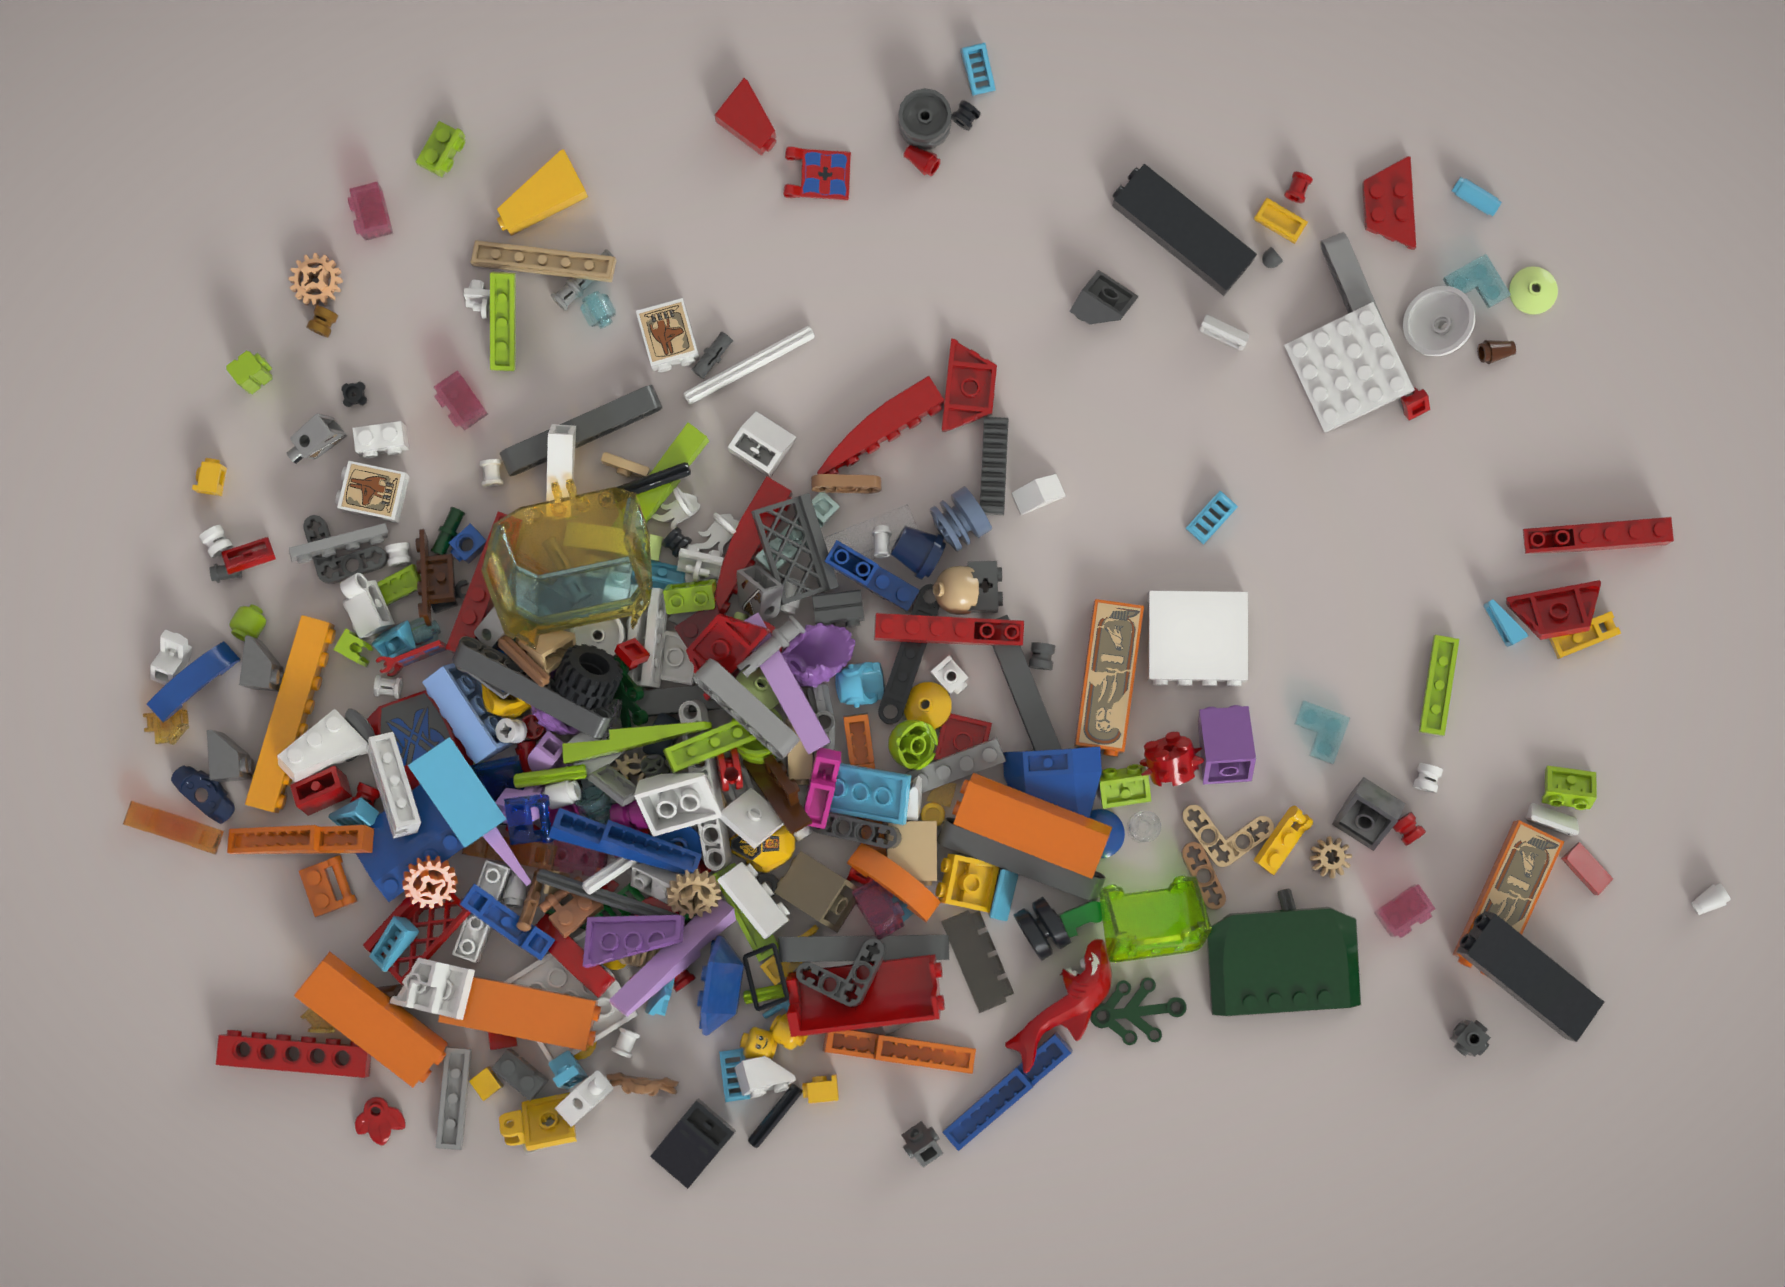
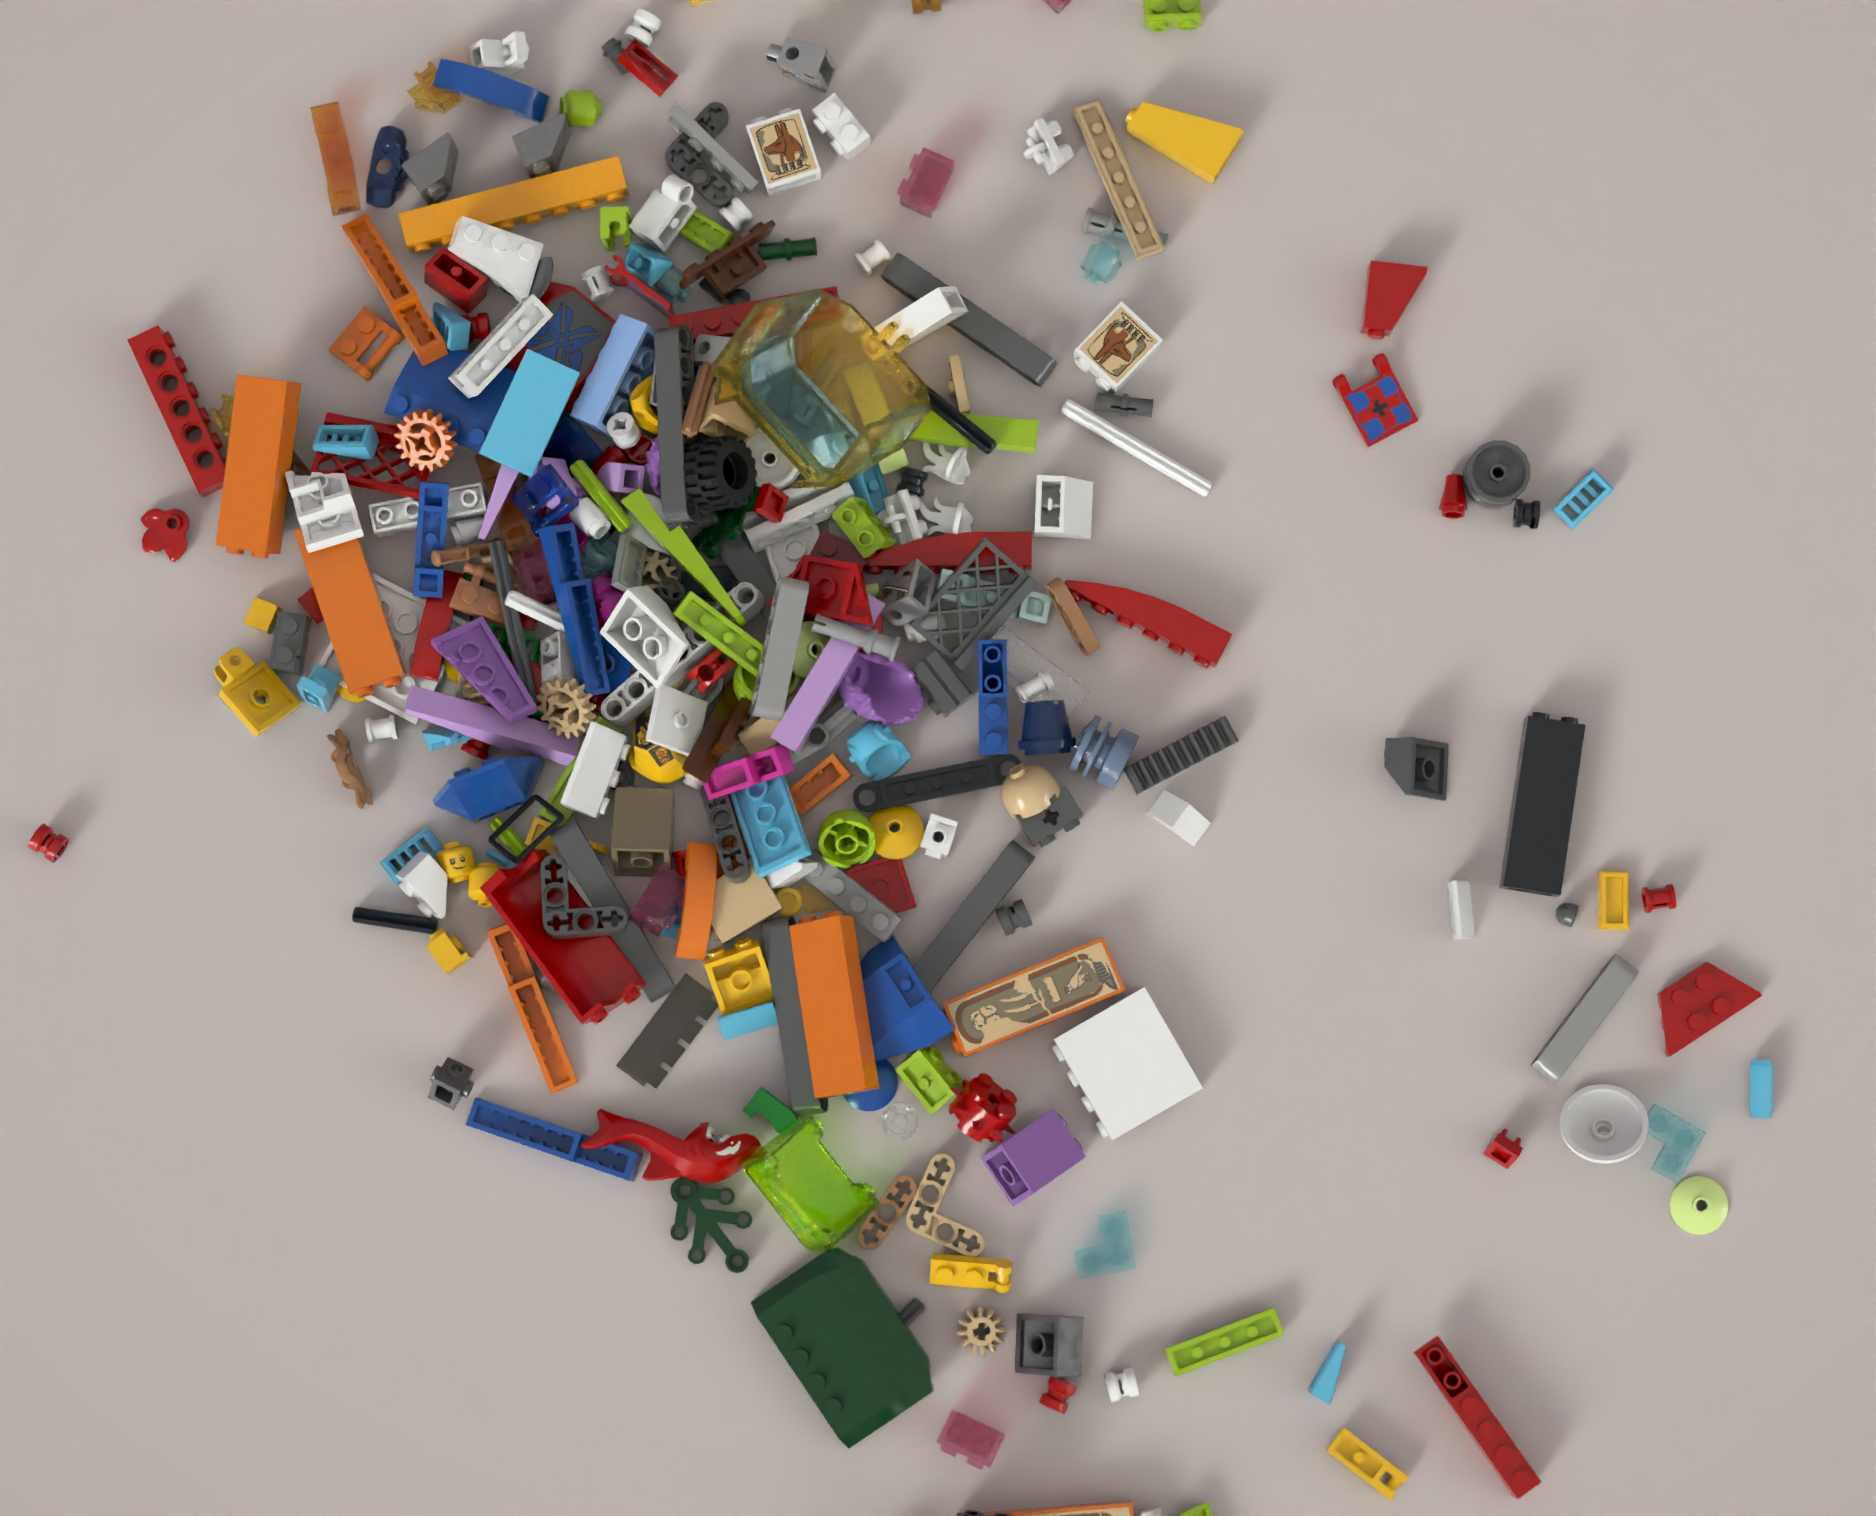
camera: 60 degrees right, 0 degrees up
(348, 389) = (871, 65): black plate -> none
(453, 1098) = (229, 592): light grey plate -> none
(471, 533) = (799, 279): blue brick -> none
(502, 321) = (1031, 175): lime plate -> none
(590, 1092) = (309, 722): white torso -> none
(693, 1143) = (321, 854): black slope -> none
(948, 630) = (982, 806): red slope -> none
(968, 387) = (1246, 681): red wing -> none
(1043, 927) = (738, 1078): black wheel -> none
(1230, 505) = (1283, 1014): medium azure slope -> none
(1349, 367) = (1499, 1059): white plate -> none
(1493, 350) = (1609, 1200): reddish brown cone -> none
(1557, 610) = (1375, 1420): red wing -> none

